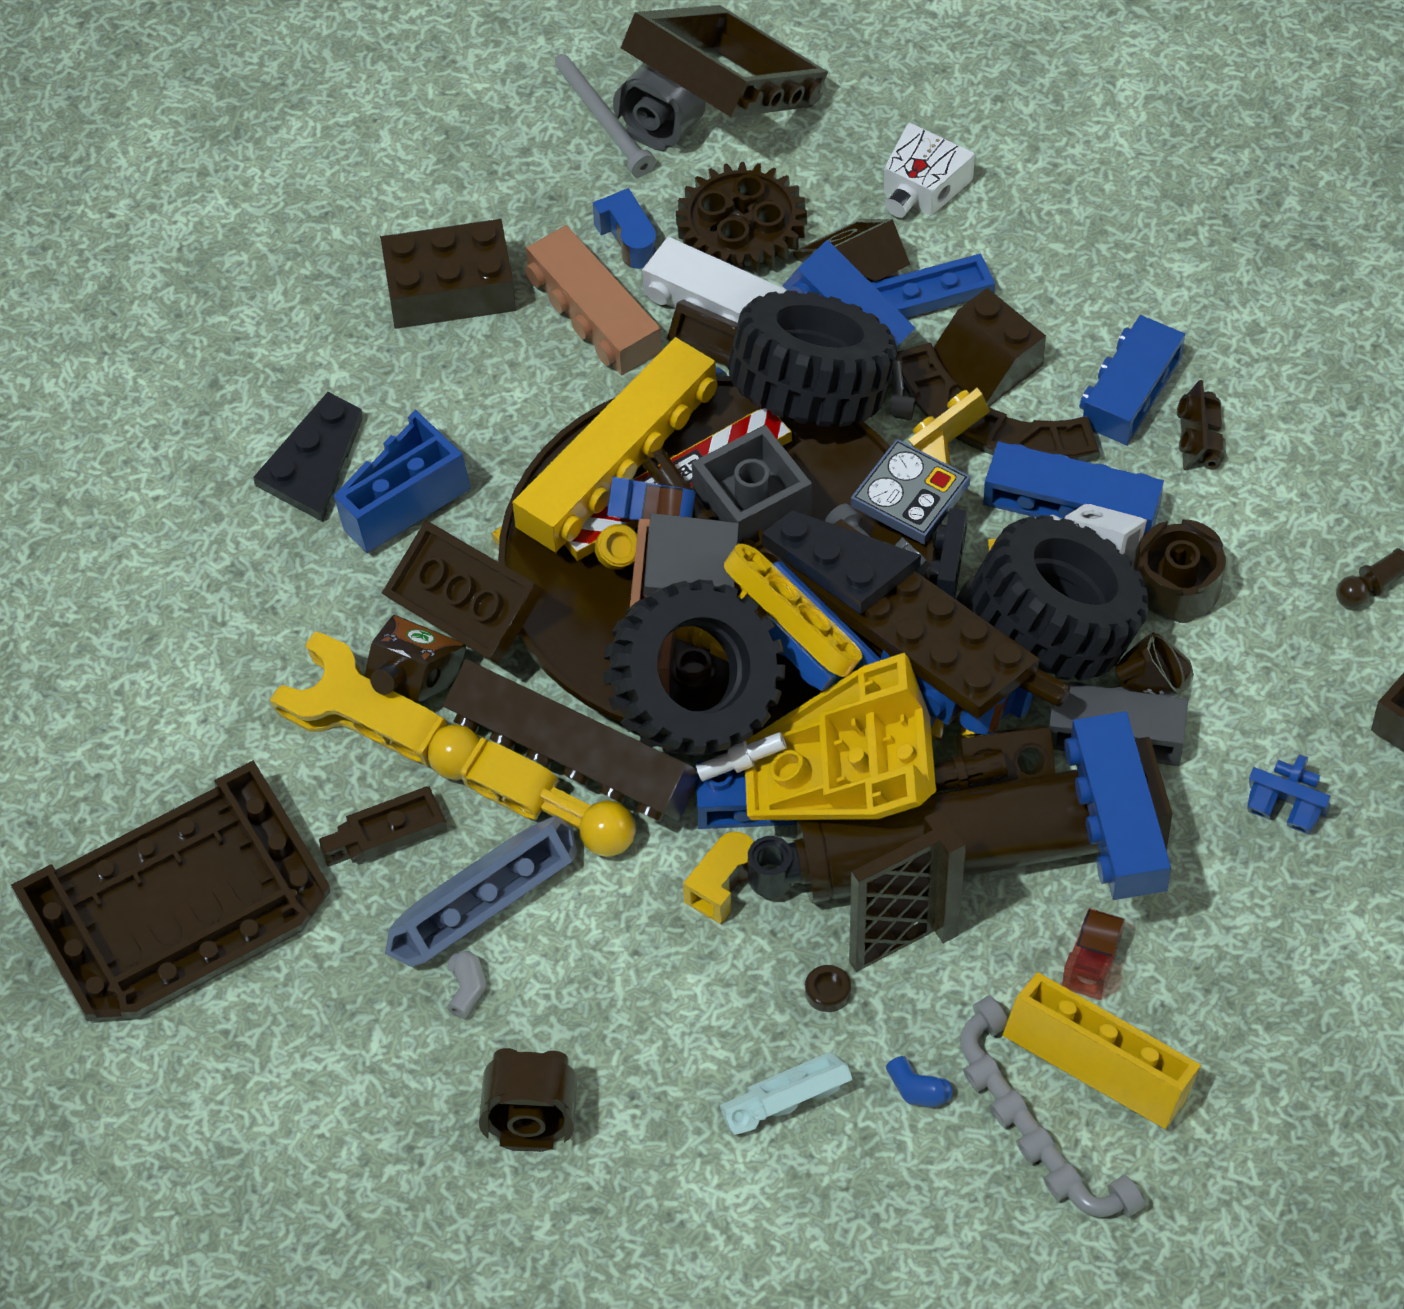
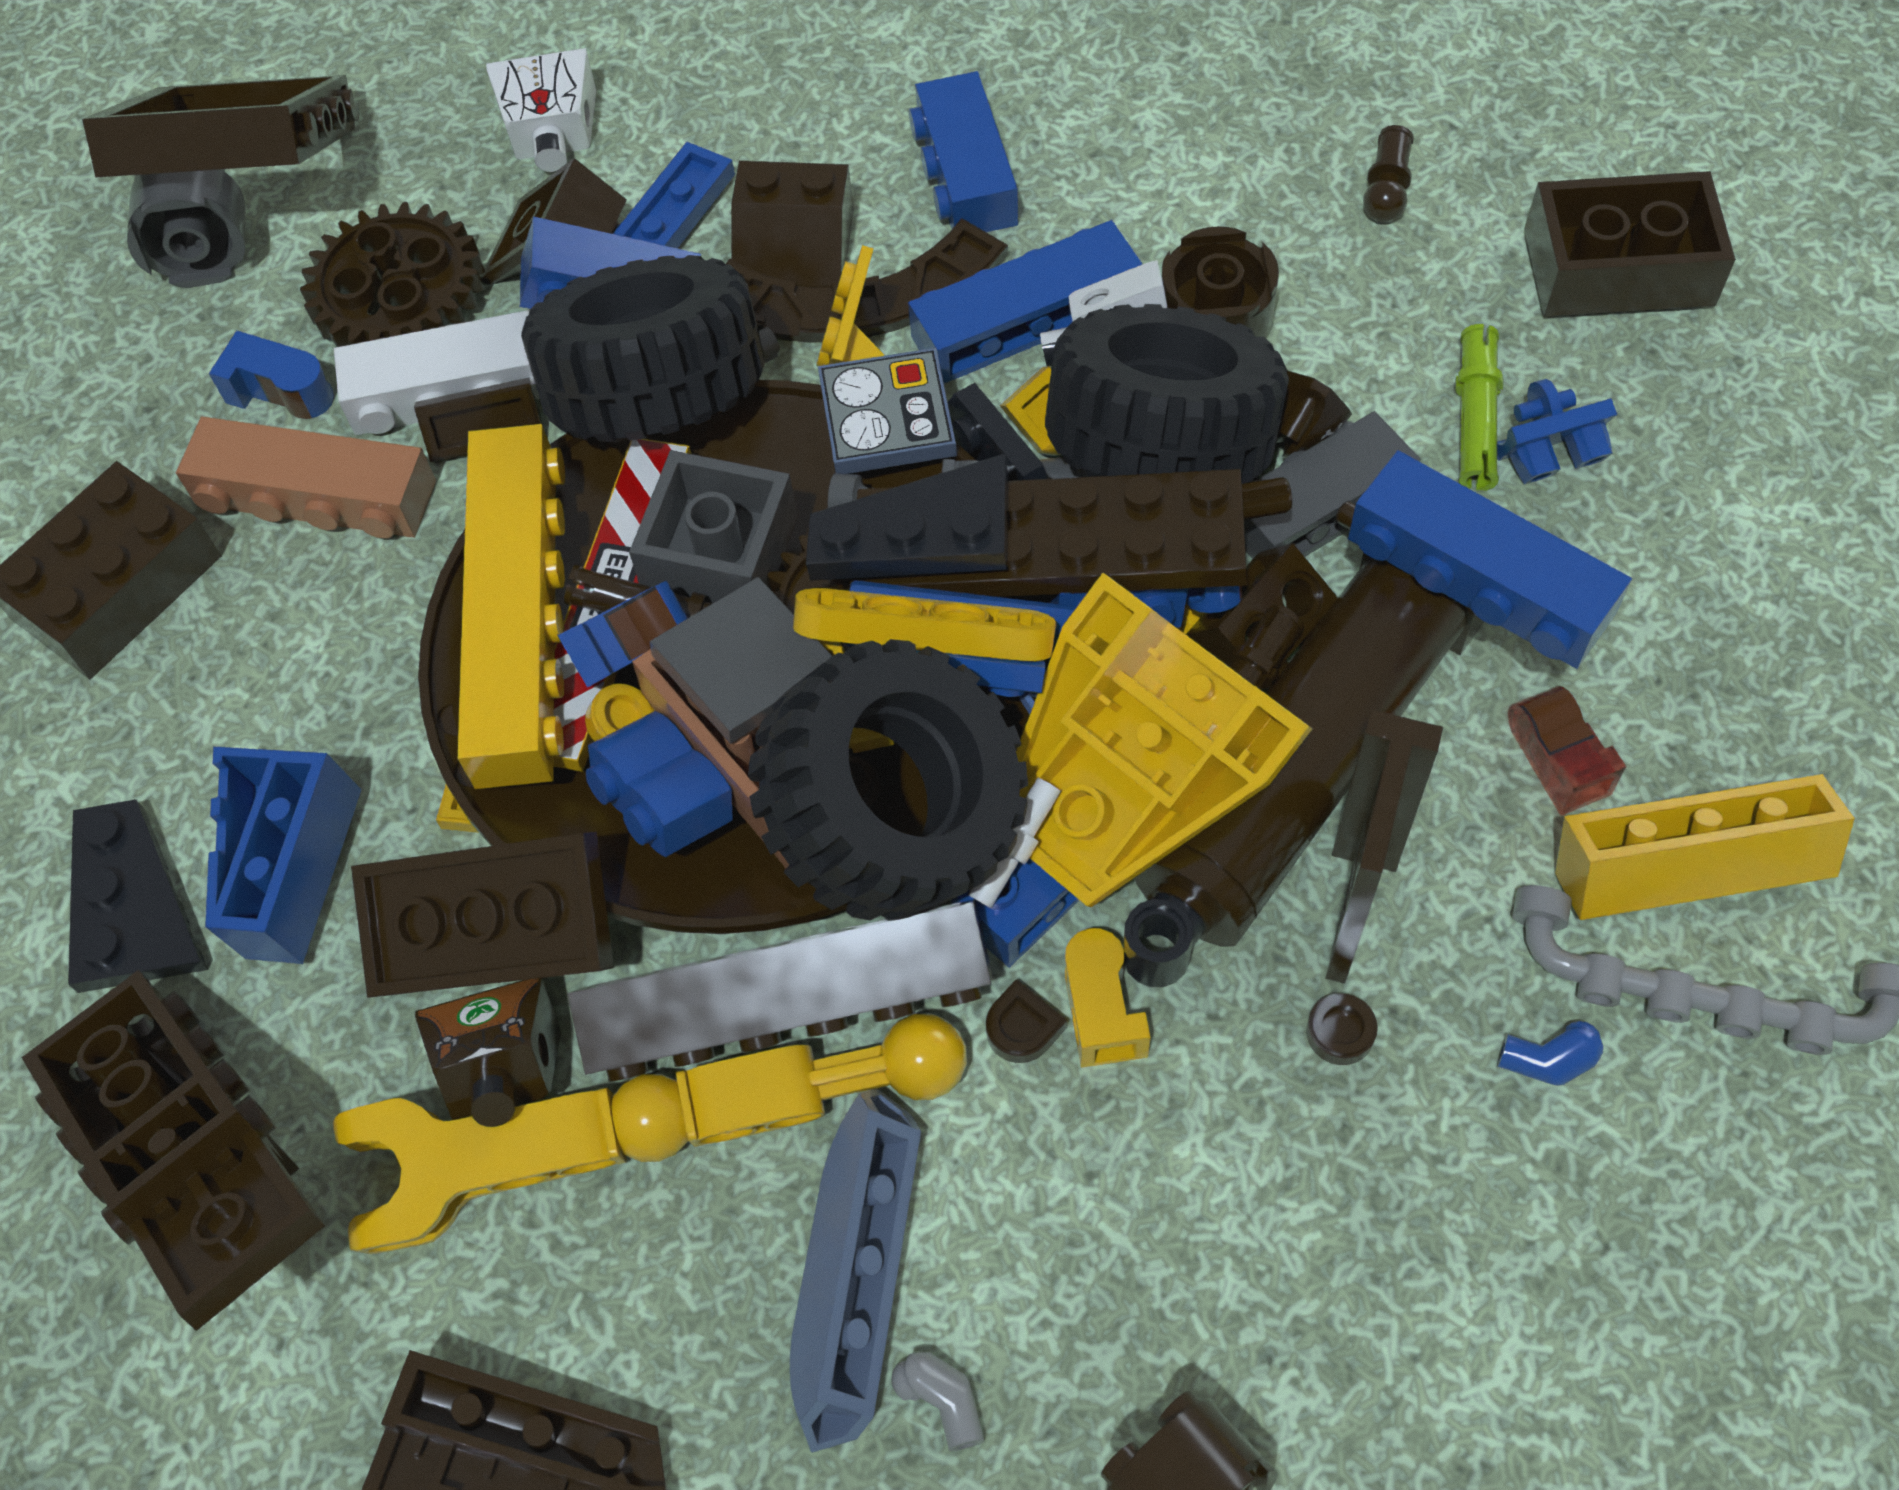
camera: 40 degrees left, 5 degrees up
(233, 580) = (172, 1146): none -> dark brown wedge
(384, 827) = (651, 1286): dark brown hinge -> none
(599, 590) = (659, 784): none -> blue brick
(639, 161) = (218, 300): light grey bar -> none
(673, 857) = (1022, 1025): none -> dark brown tile
(784, 1091) = (1438, 1192): light aqua hinge -> none
(1197, 414) = (1073, 157): dark brown hinge -> none
(1279, 737) = (1479, 386): none -> lime pin

